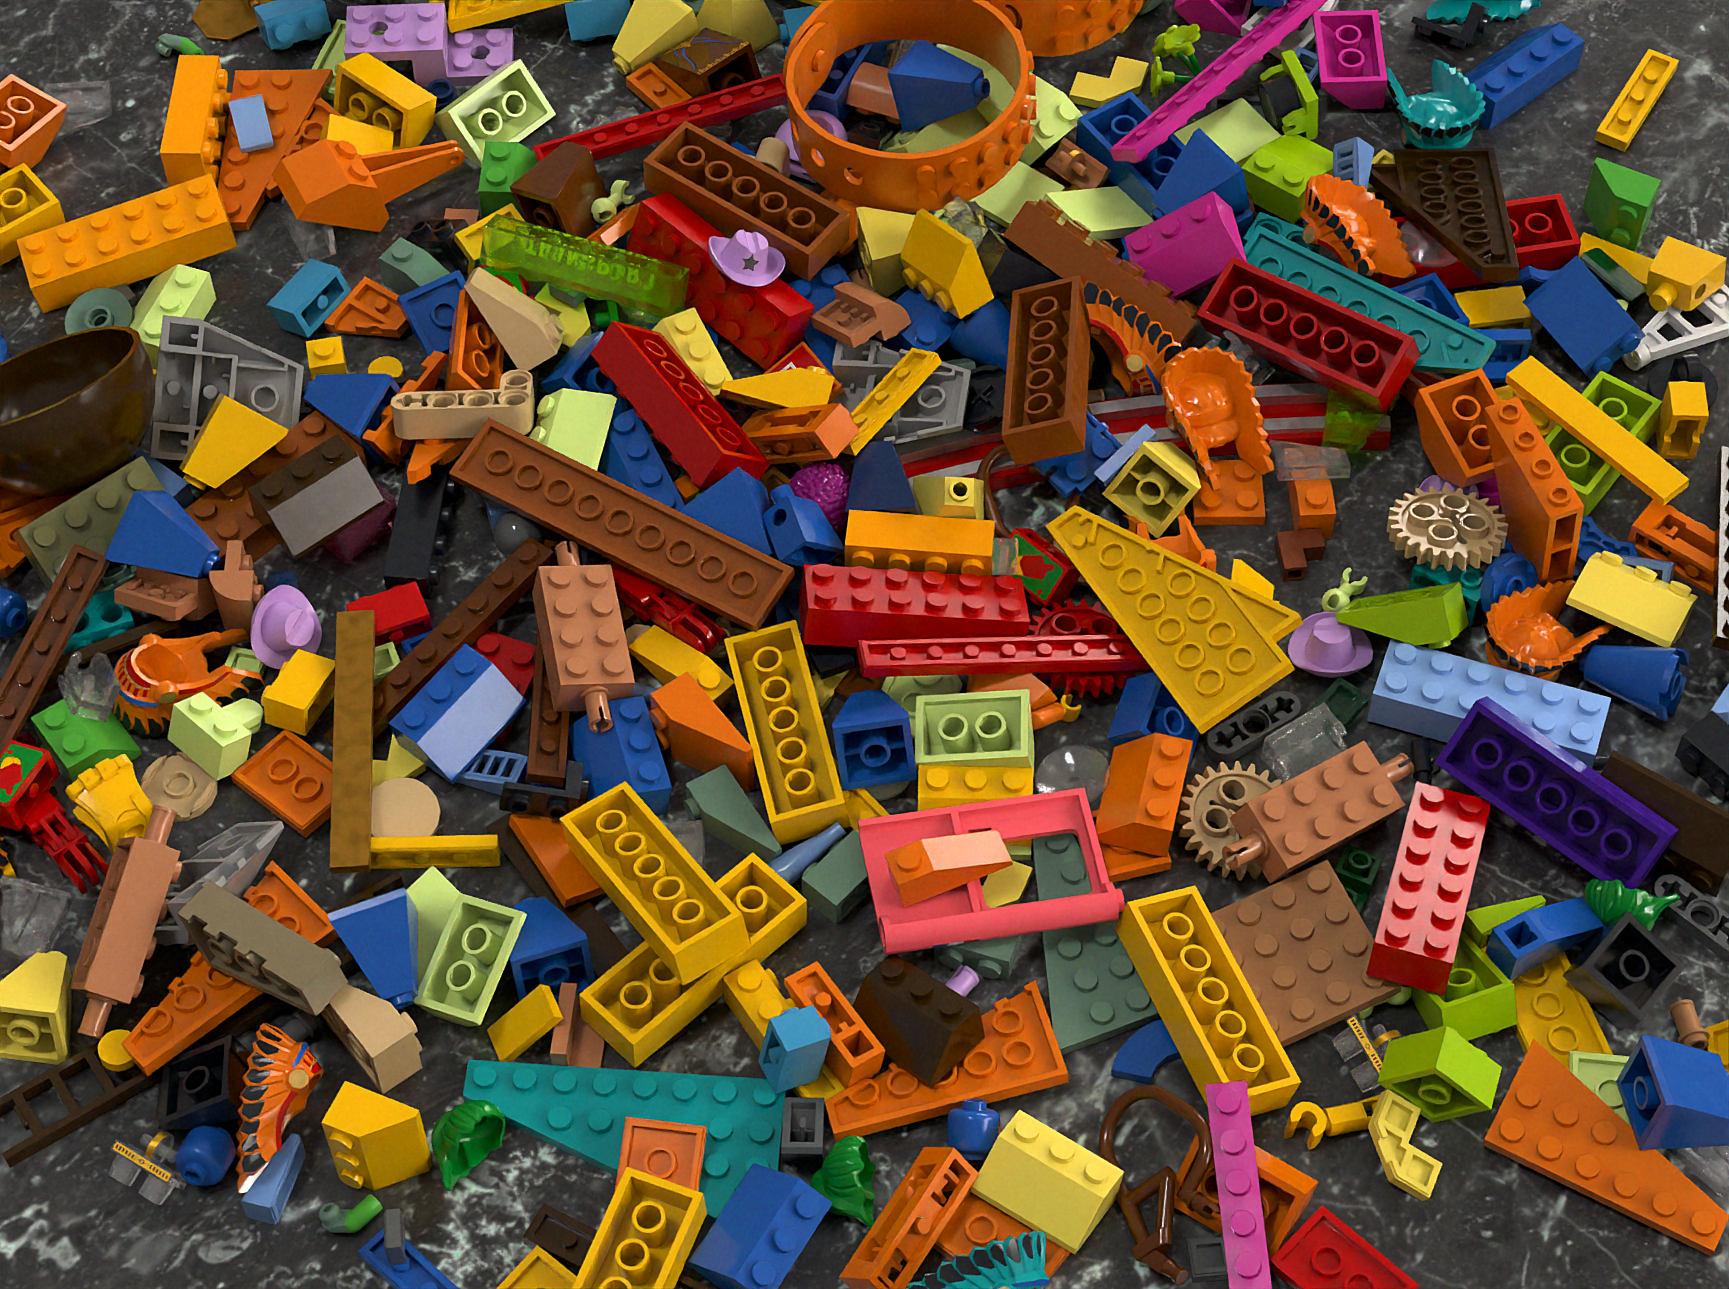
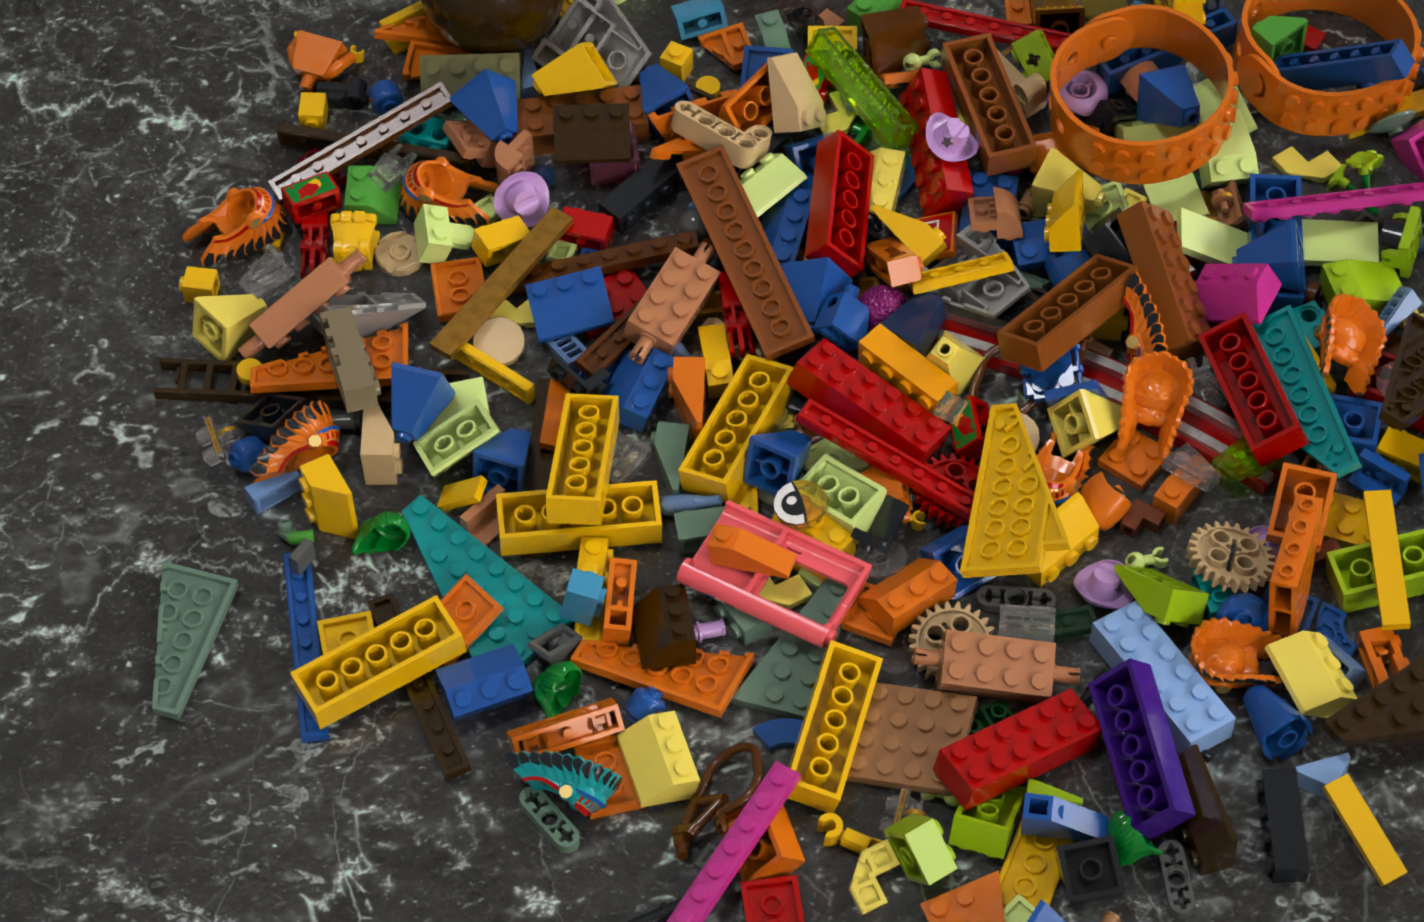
camera: 40 degrees right, 0 degrees up
(735, 109) = (1036, 45): none -> lime brick
(947, 770) = (800, 504): none -> tile
(966, 219) = (1111, 195): clear hips -> none
(1052, 734) = (884, 526): none -> black bracket
(1260, 550) = (1105, 502): none -> orange piece

